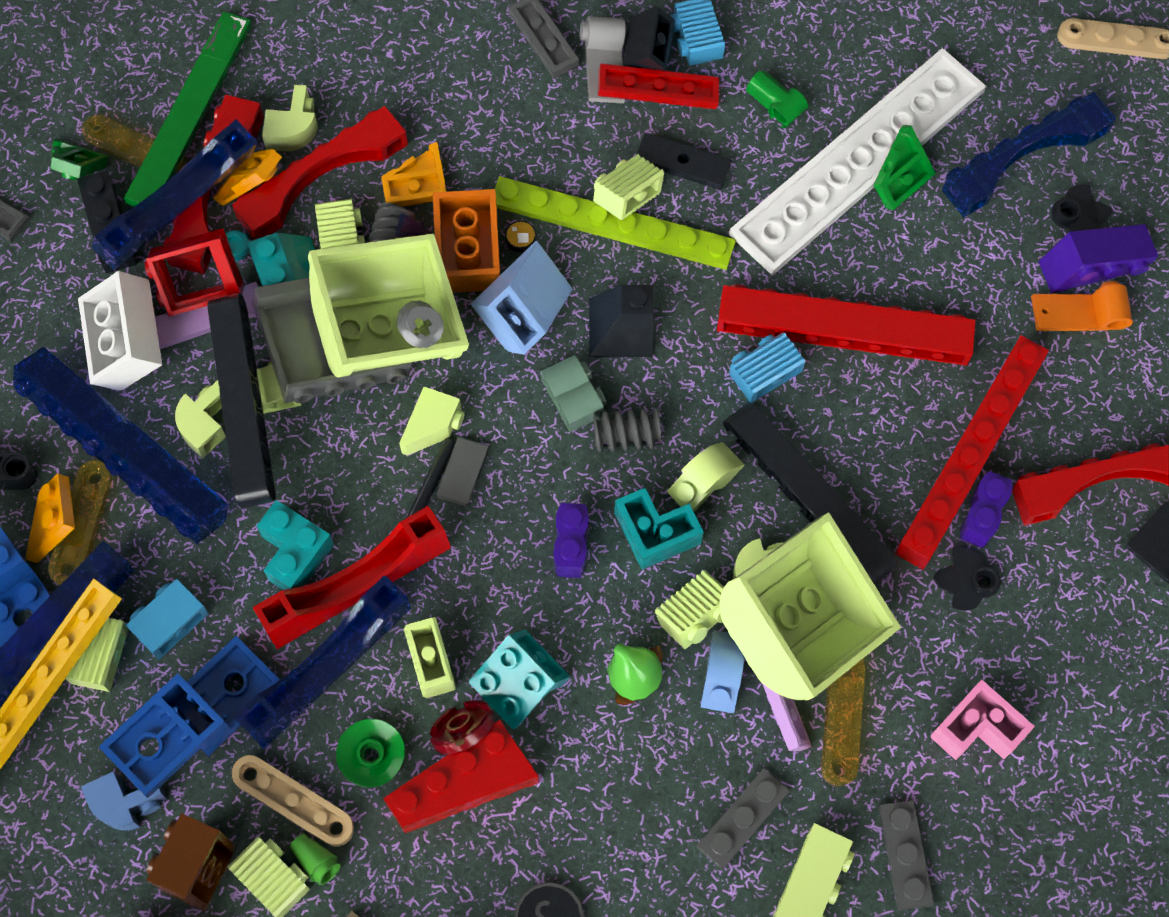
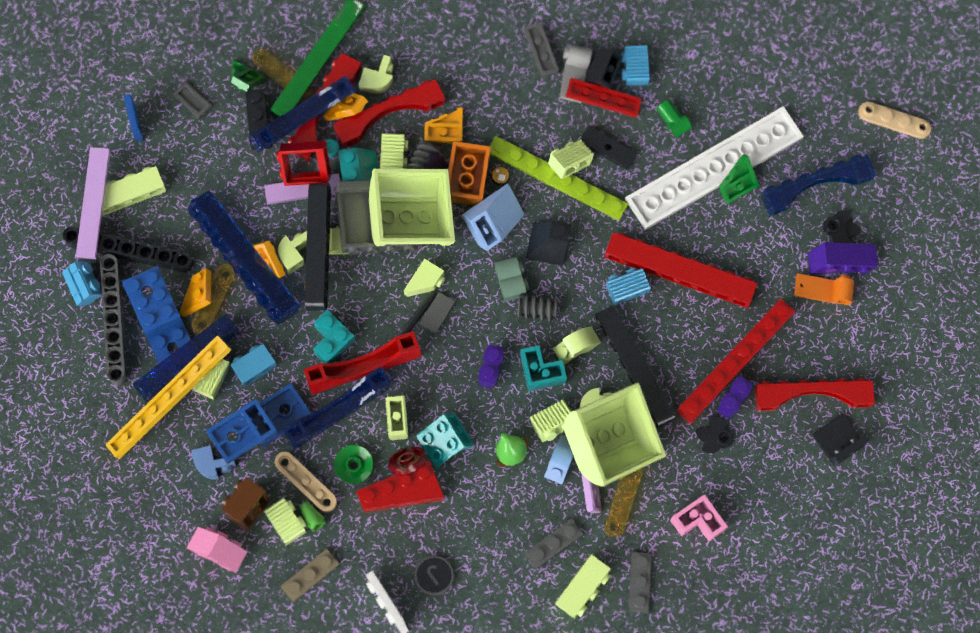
camera: 10 degrees right, 5 degrees up
(119, 331) = (255, 190): white brick -> none
(159, 428) = (268, 254): none -> light orange wing
(431, 319) = (429, 218): dark grey piece -> none

